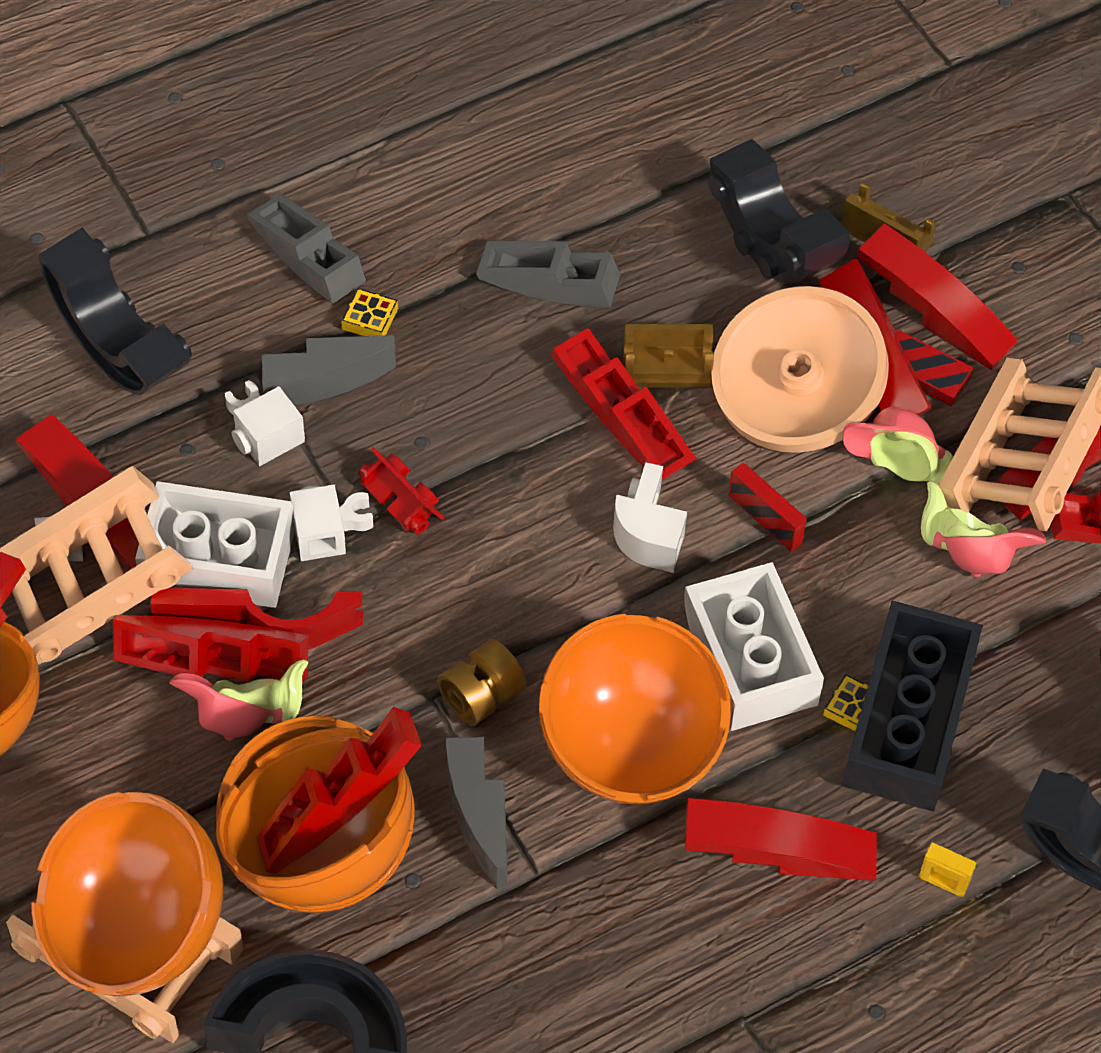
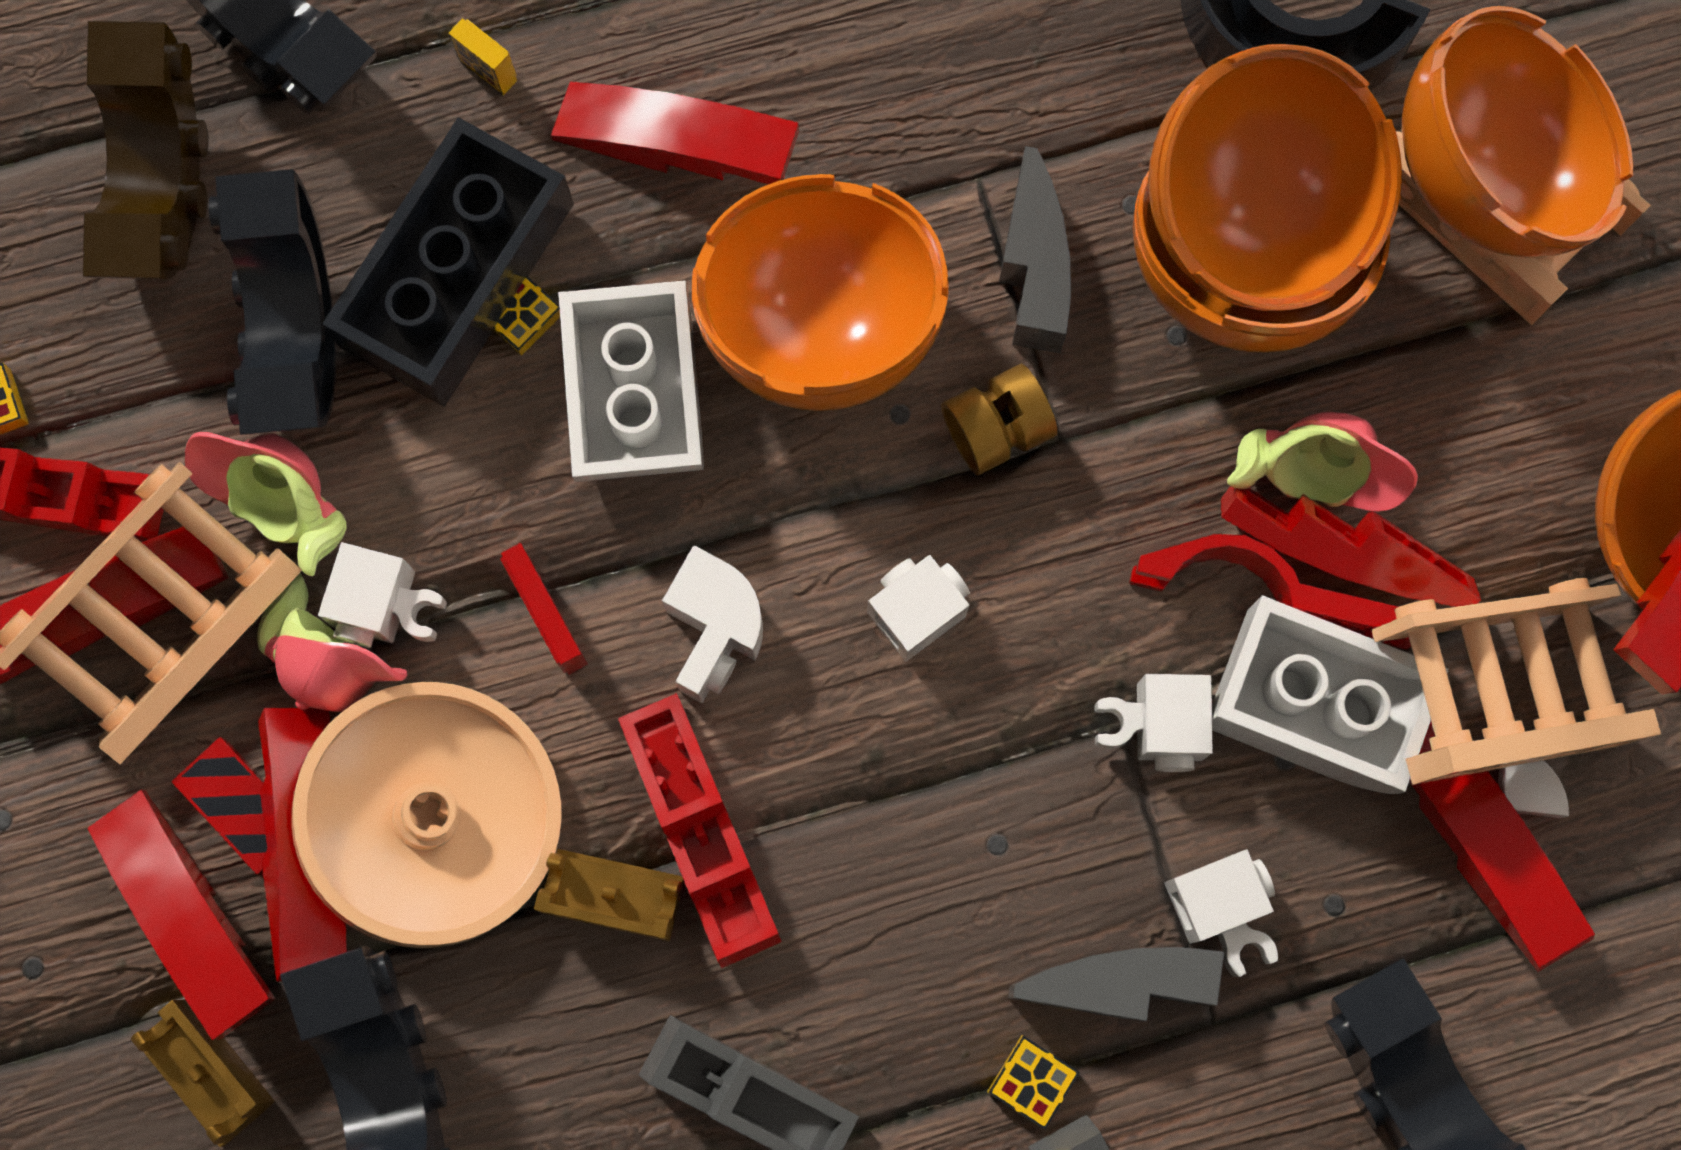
camera: 165 degrees left, 20 degrees up
(330, 799) = (1238, 193): red slope -> none
(413, 503) = (1056, 779): red hinge -> none
(510, 556) = (918, 604): none -> white brick
(885, 493) = (372, 596): none -> white brick
(1013, 641) = (285, 297): none -> black brick

